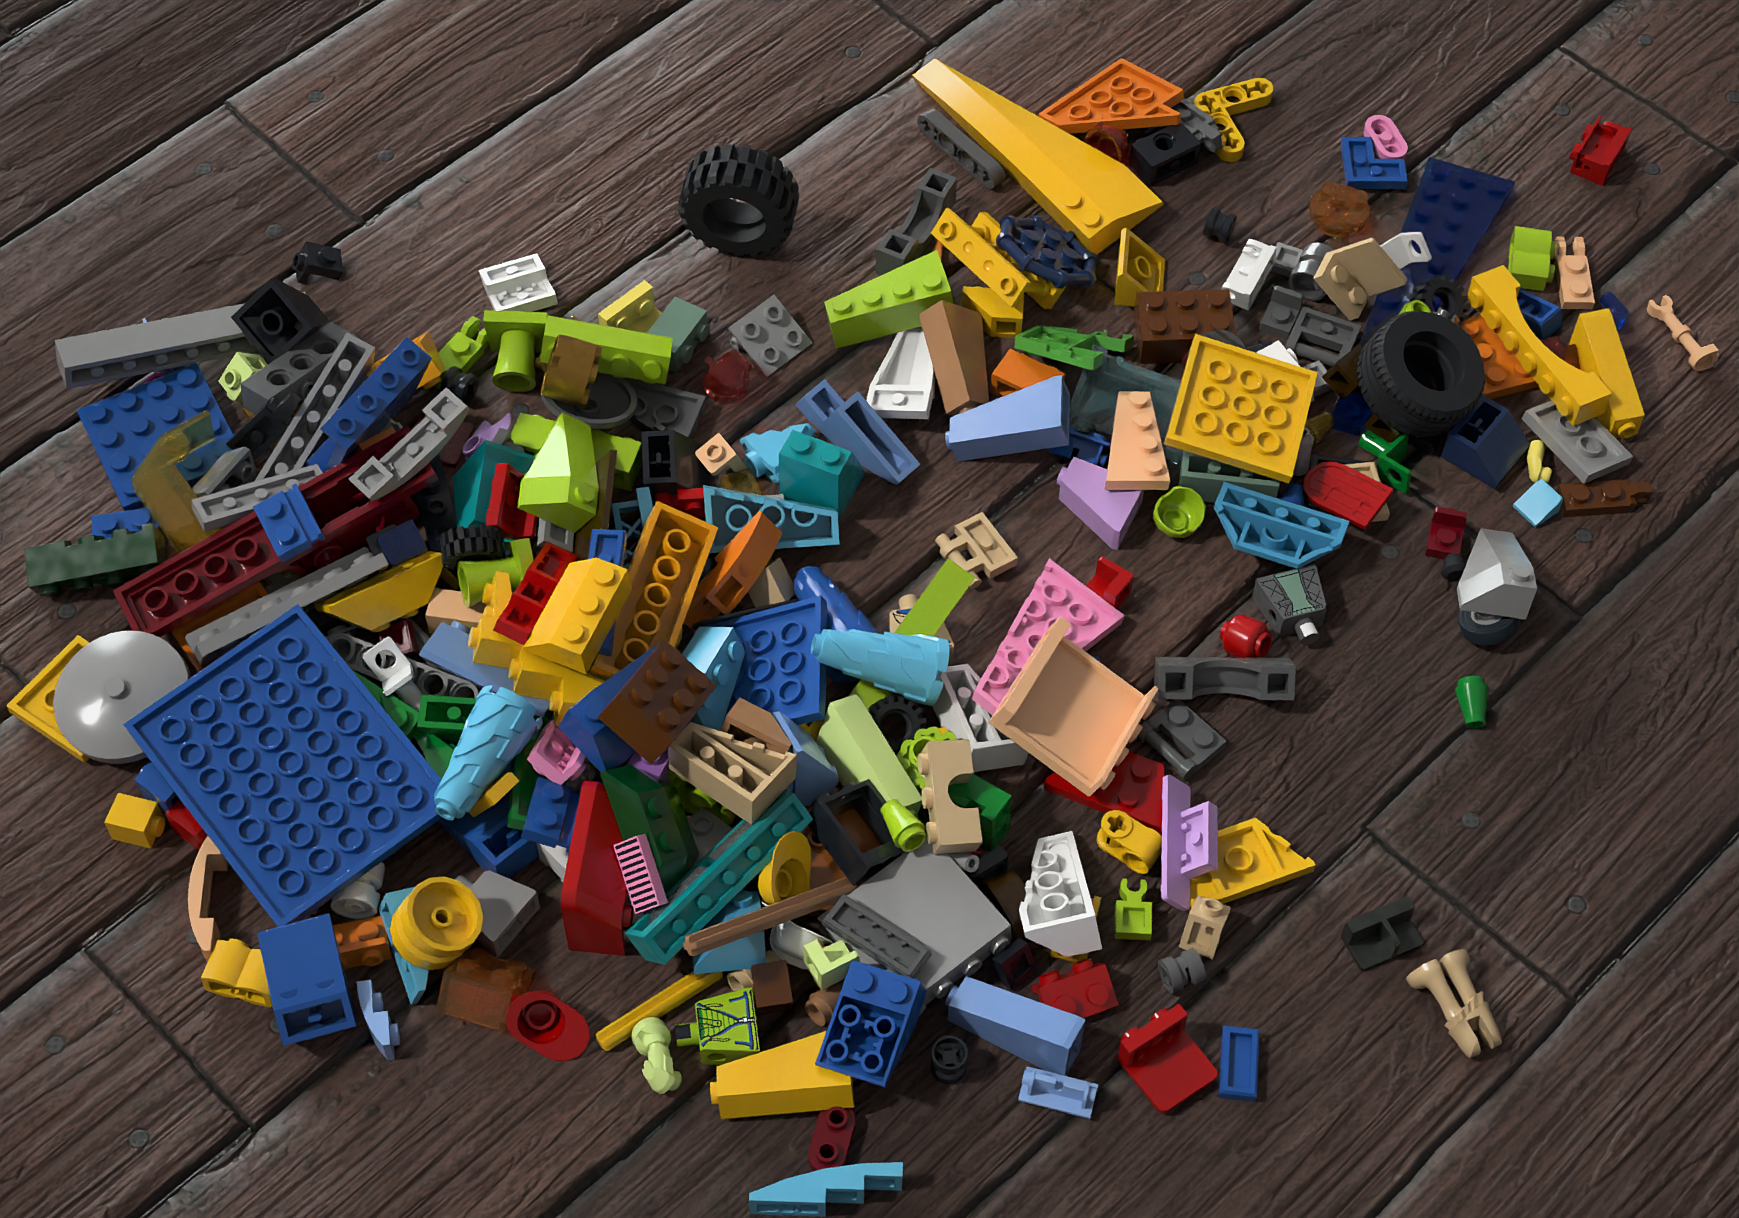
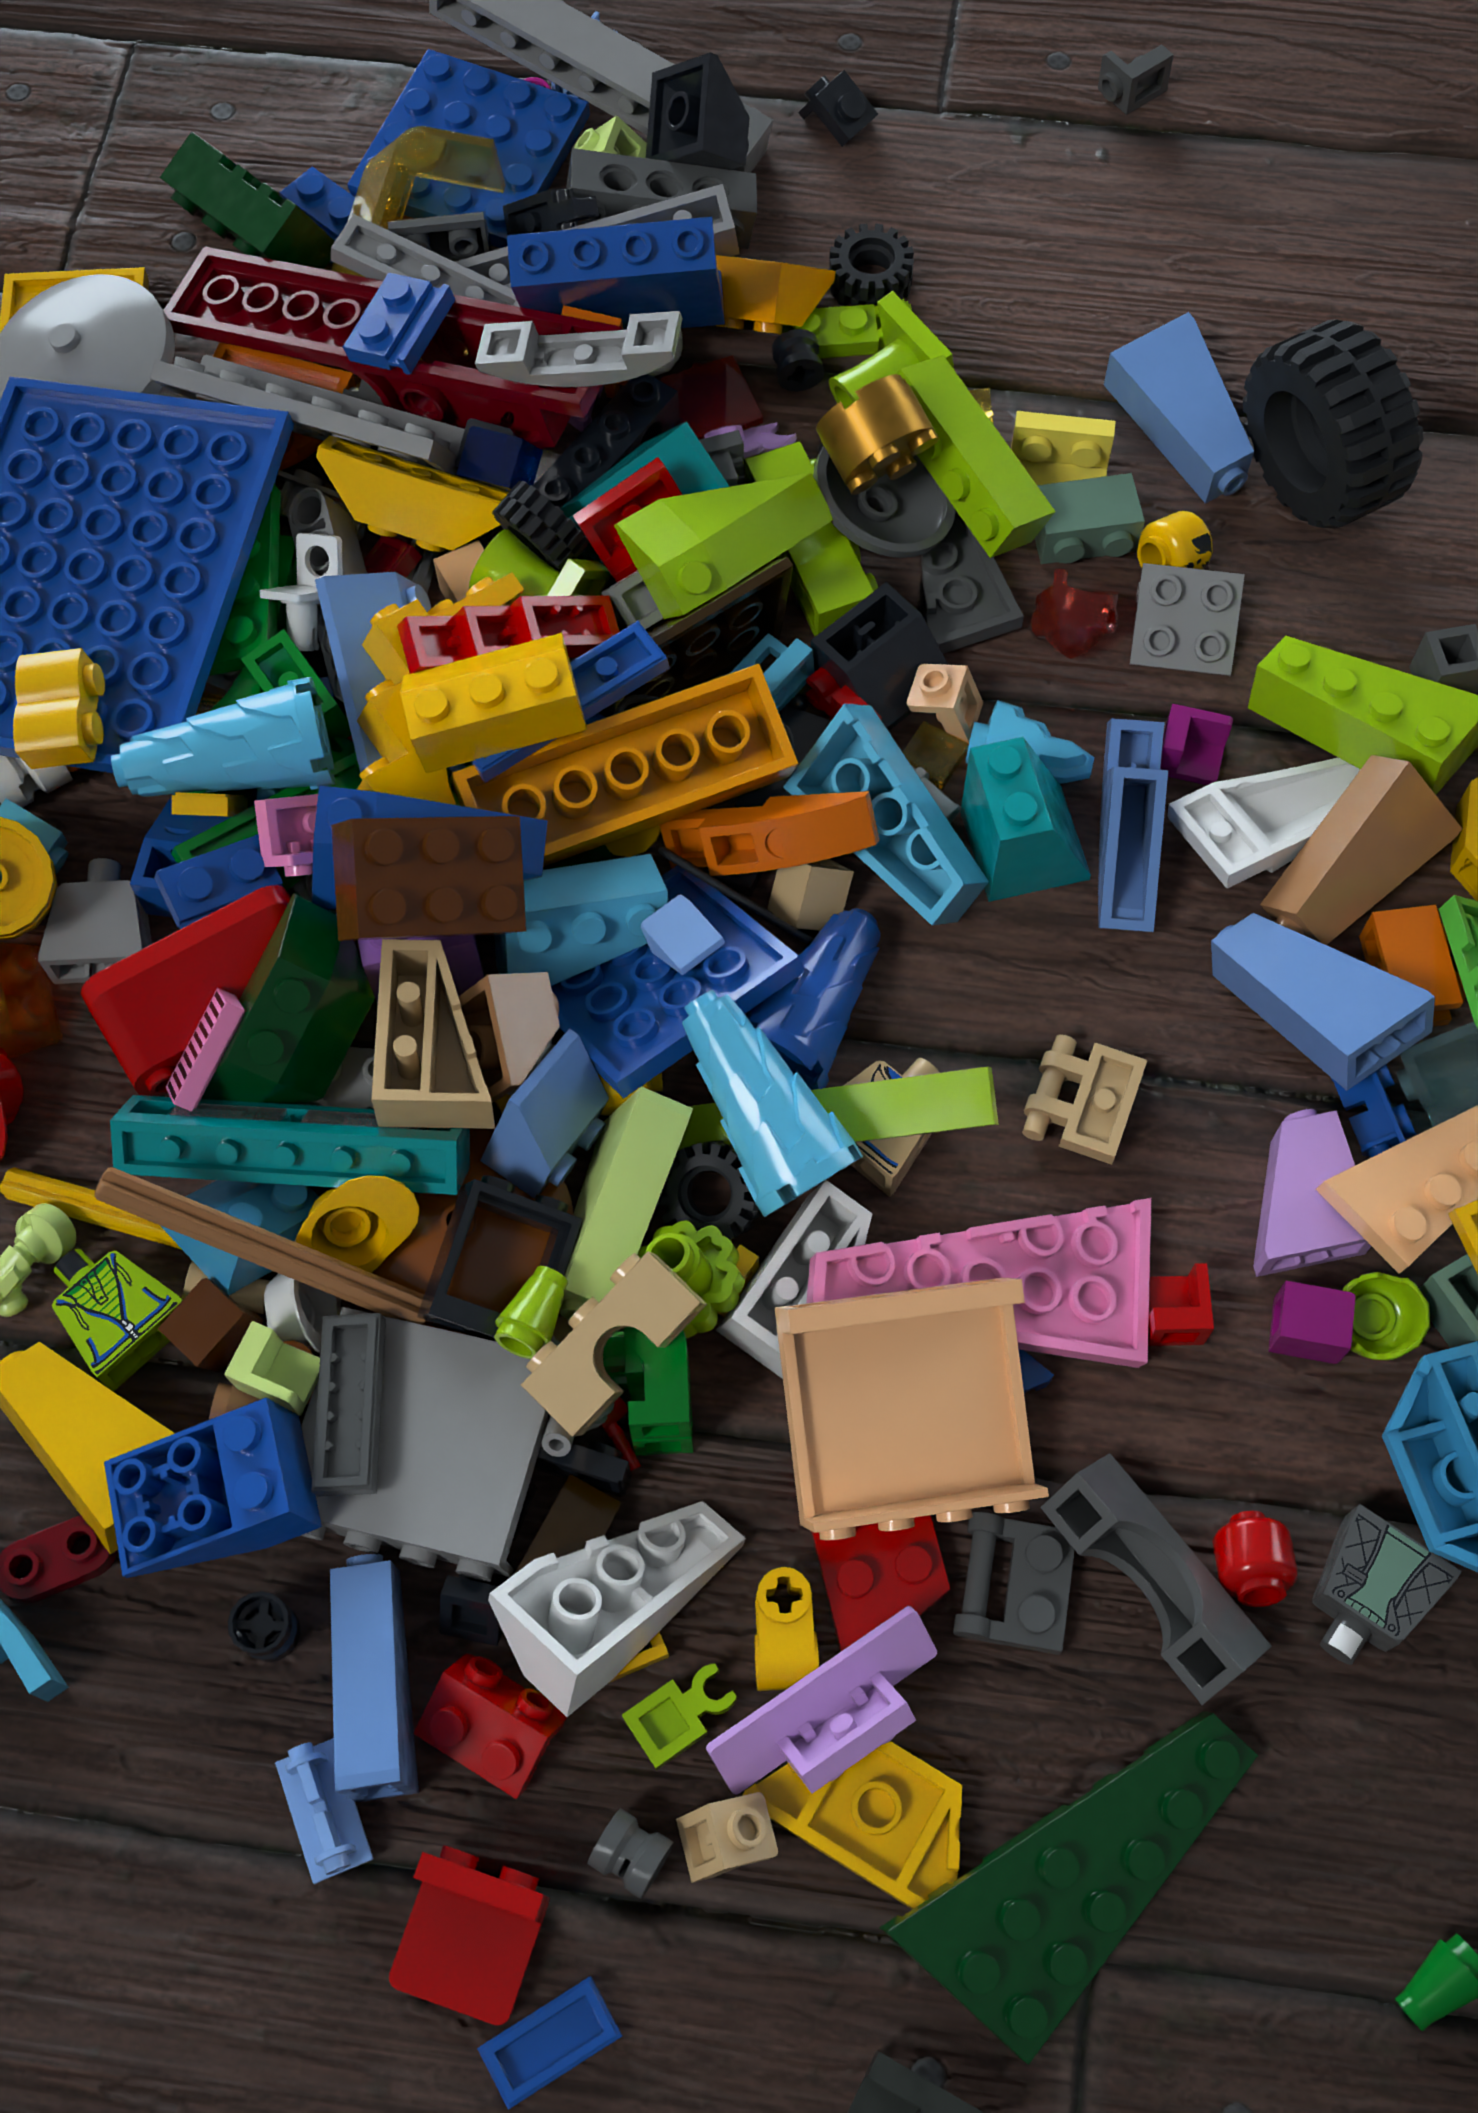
camera: 55 degrees right, 10 degrees up
(375, 821) = (57, 708): none -> yellow brick
(431, 305) = (871, 248): none -> black tyre
(440, 135) = (1137, 82): none -> dark grey bracket
(518, 285) = (999, 315): white slope -> none
(653, 252) = (1182, 406): none -> medium blue slope
(725, 309) = (1176, 541): none -> yellow head
(759, 640) = (680, 935): none -> light blue slope
(838, 376) = (1194, 744): none -> magenta panel
(1159, 541) = (1312, 1322): none -> magenta panel
(1330, 814) = (1058, 1898): none -> dark green wing

